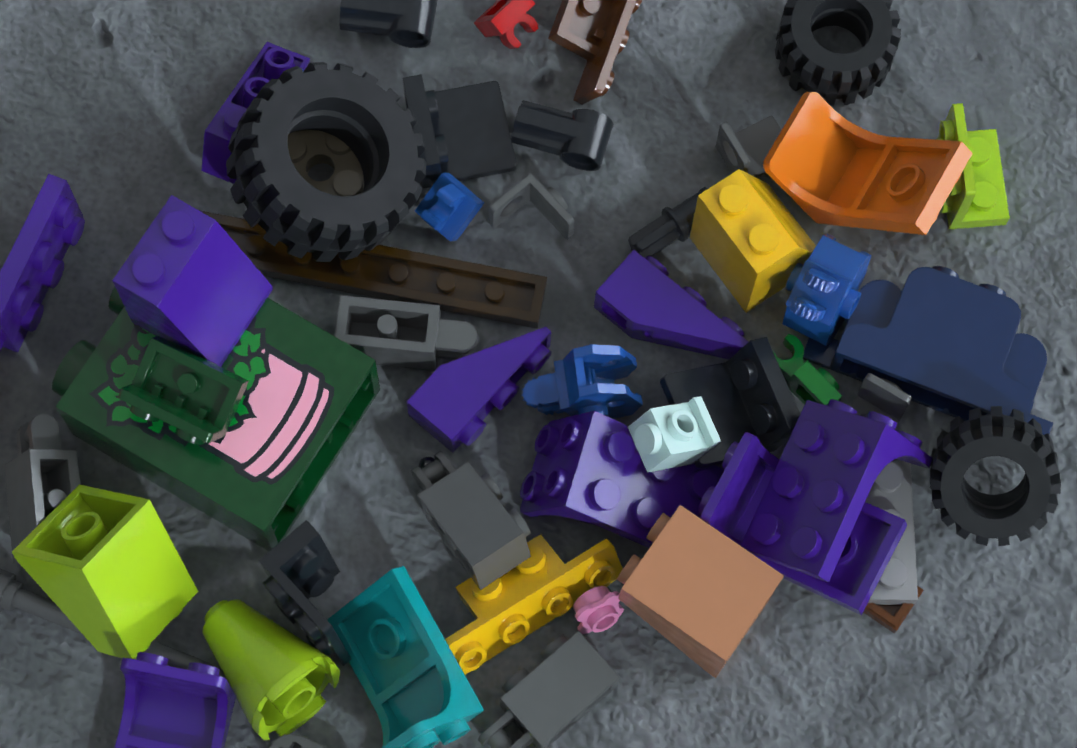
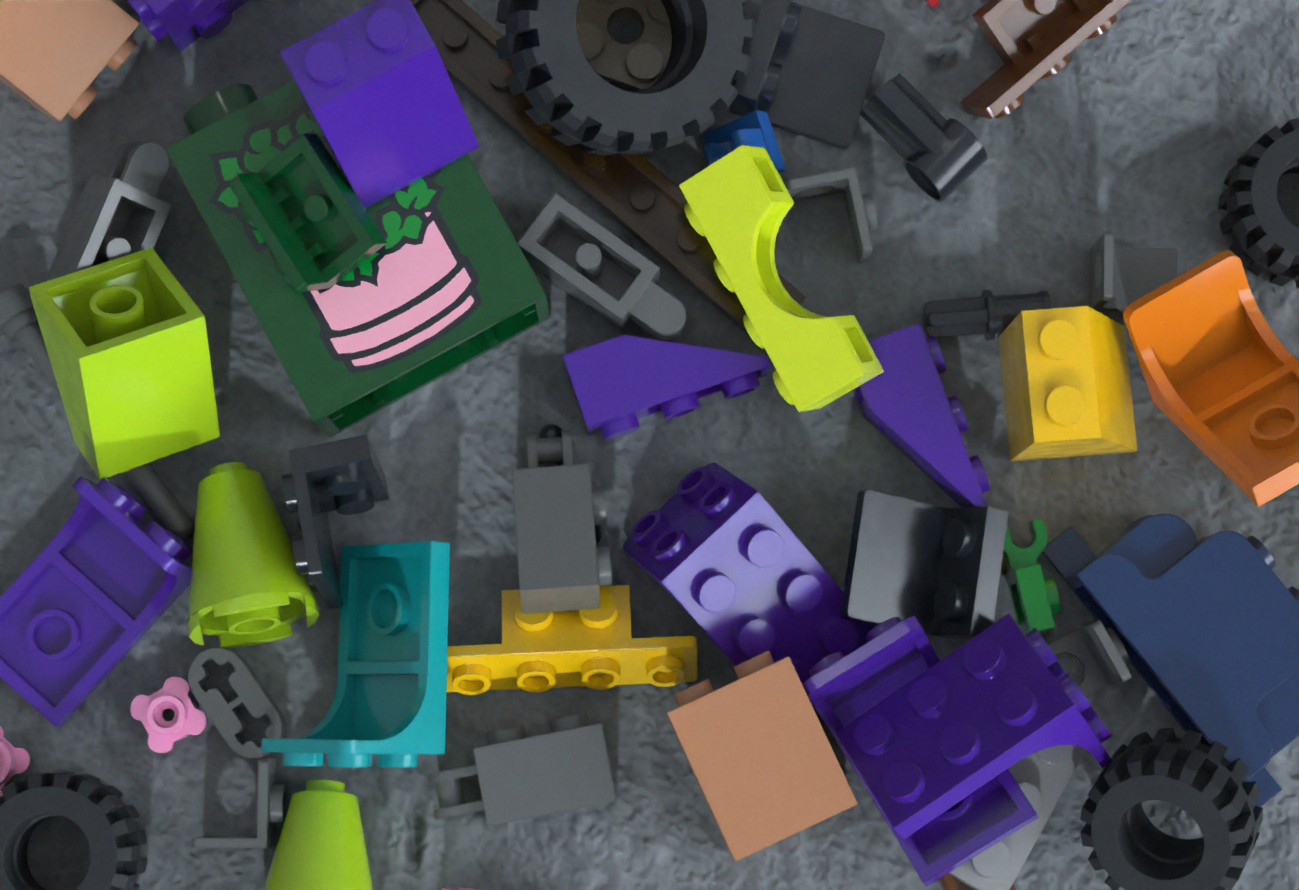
camera: 30 degrees right, 10 degrees up
(471, 239) = (739, 211): none -> neon yellow arch
(586, 383) = (772, 448): blue hinge -> none
(597, 610) = (640, 707): bright pink plate -> none
(674, 435) = (832, 569): light aqua brick -> none
(825, 289) = (1110, 493): blue hinge -> none

